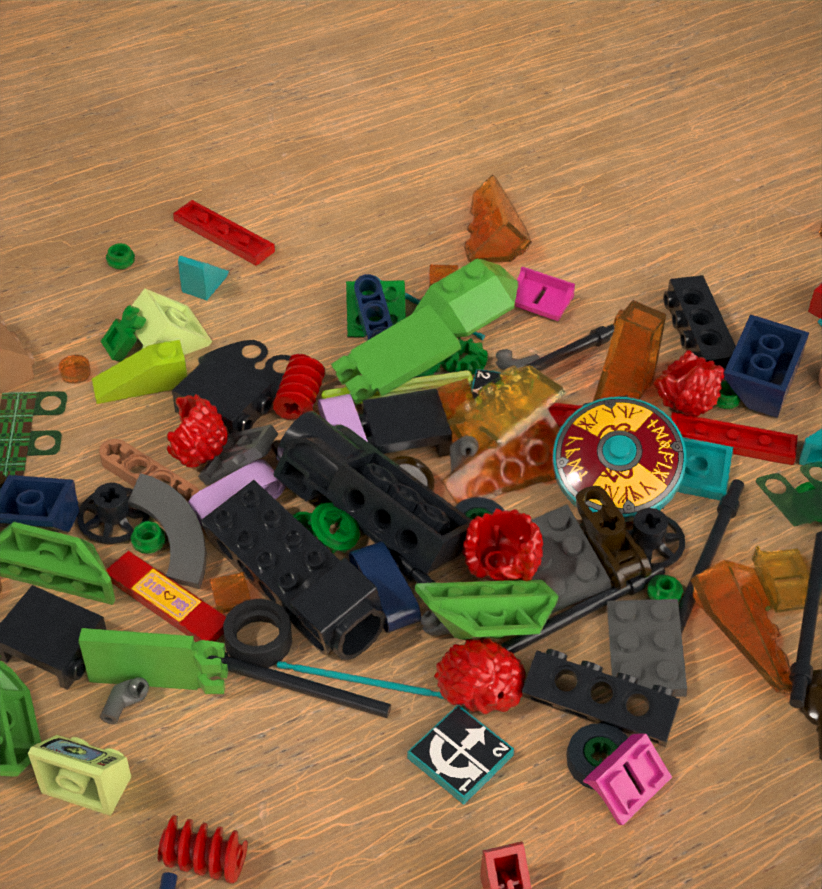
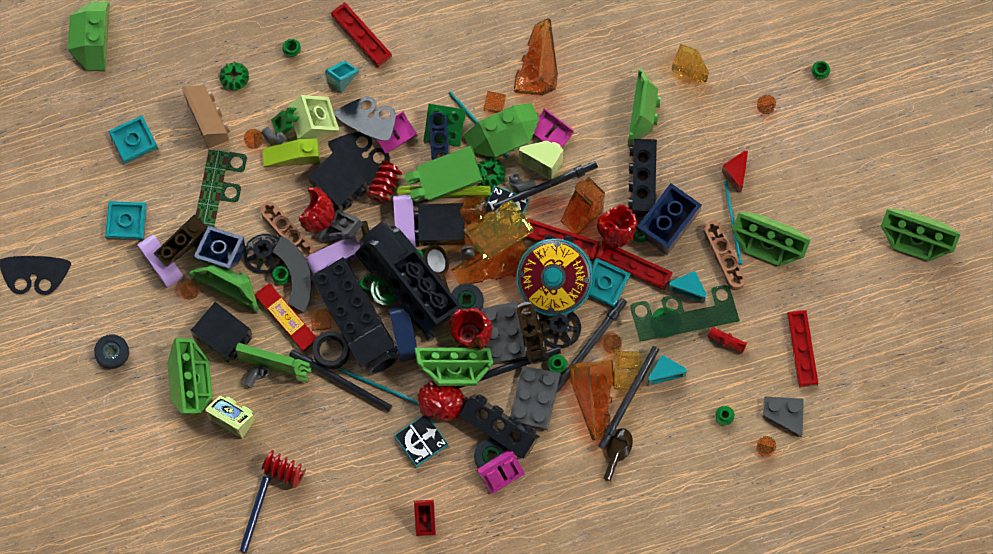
camera: 15 degrees right, 25 degrees up
(45, 303) = (240, 80): none -> green gear
(106, 361) = (272, 138): none -> dark grey arm
(237, 319) = (358, 119): none -> piece
(305, 318) = (403, 130): none -> dark pink piece
(539, 318) = (542, 158): none -> yellowish green slope
(664, 246) = (643, 108): none -> bright green wedge
(711, 199) = (690, 63): none -> clear yellow slope
(742, 545) = (611, 342): none -> clear orange tile

